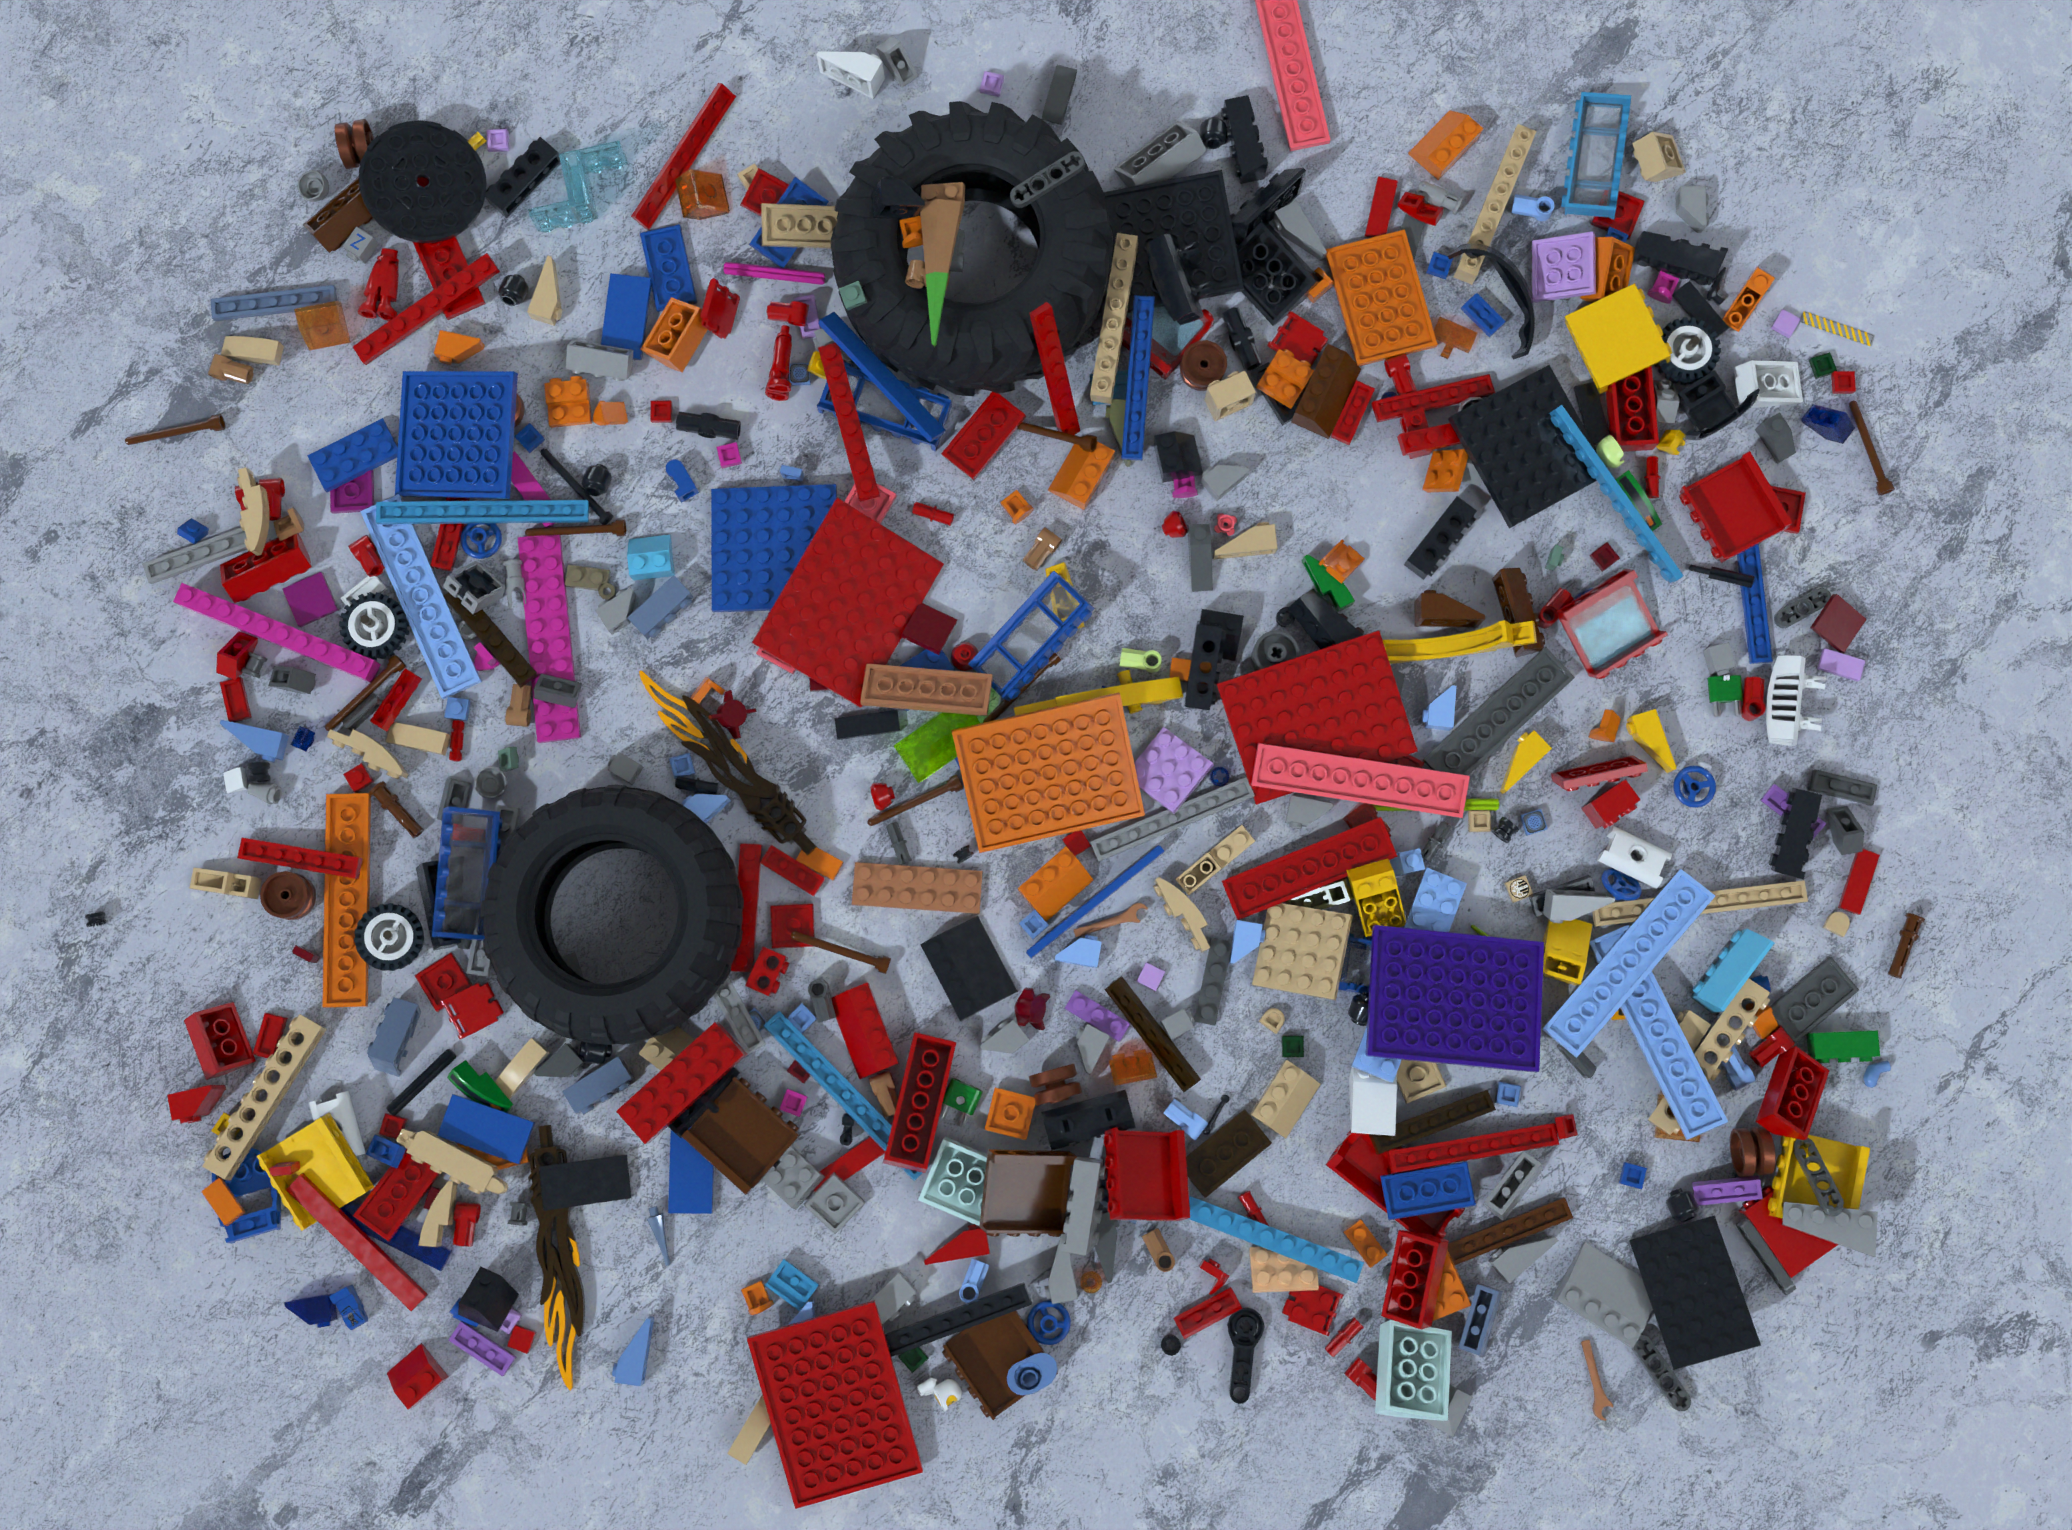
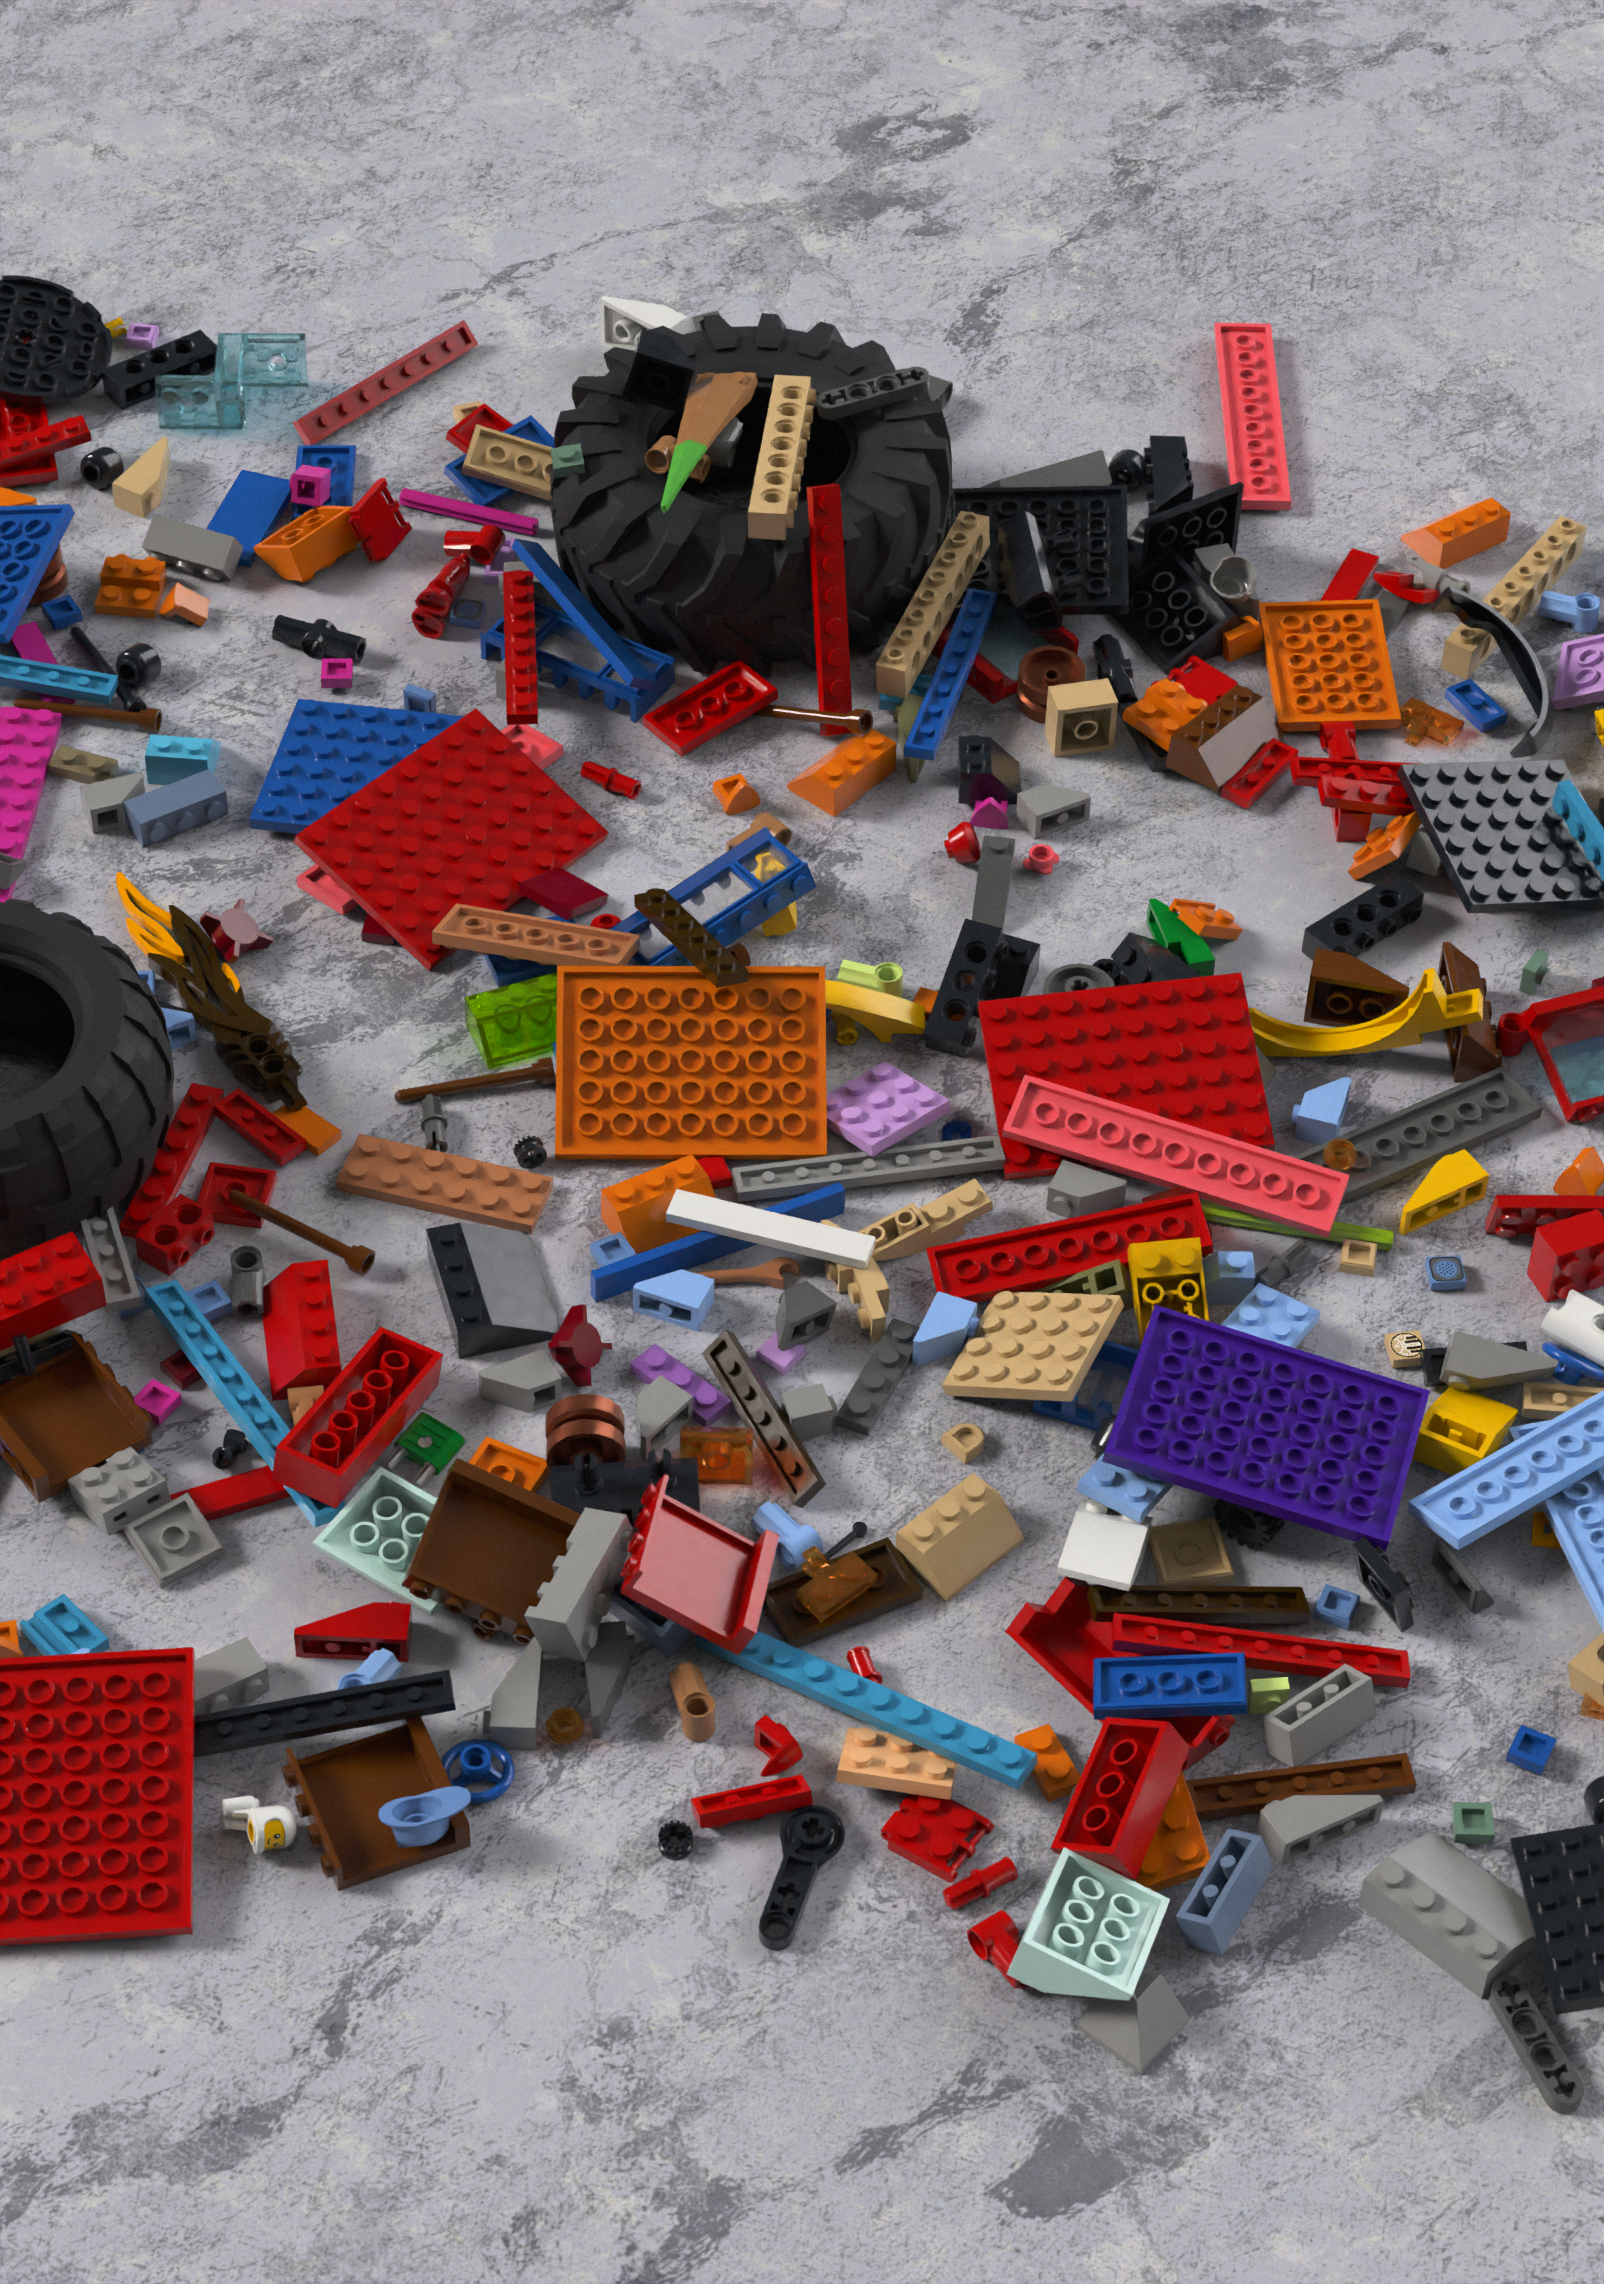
camera: 10 degrees right, 35 degrees down
(661, 411) = (258, 619): red tile -> none
(663, 284) = (310, 485): none -> dark pink brick
(679, 474) = (259, 687): blue leg -> none
(702, 194) = (396, 420): clear orange slope -> none
(704, 688) = (208, 899): orange tile -> none
(816, 366) = (494, 604): yellow plate -> none
(867, 724) = (431, 986): black tile -> none
(882, 795) = (427, 1062): red cone -> none
(911, 232) = (668, 420): orange tile -> none
(913, 1358) = (231, 1775): dark green tile -> none
(989, 191) = (781, 458): none -> tan brick
(1028, 684) = (690, 938): none -> dark brown plate
(1127, 897) = (770, 1229): none -> white tile
(1157, 952) = (802, 1315): none -> dark grey slope
(1222, 1155) = (834, 1584): none -> clear orange plate
(1255, 541) = (1069, 882): tan slope -> none
(1292, 1046) = (993, 1474): dark green tile -> none
(1309, 247) = (1234, 579): none -> light grey hair
(1439, 265) = (1422, 647): blue plate -> none
(1461, 745) = (1340, 1154): none -> clear orange plate
(1481, 1174) = (1267, 1694): none -> yellowish green plate
(1505, 830) = (1396, 1268): black wheel -> none
(1542, 1091) = (1383, 1583): none -> black plate
(1566, 1126) = (1426, 1659): red plate -> none
(1600, 1397) = (1420, 2064): nougat piece -> none
(1607, 1234) = (1472, 1822): none -> sand green plate

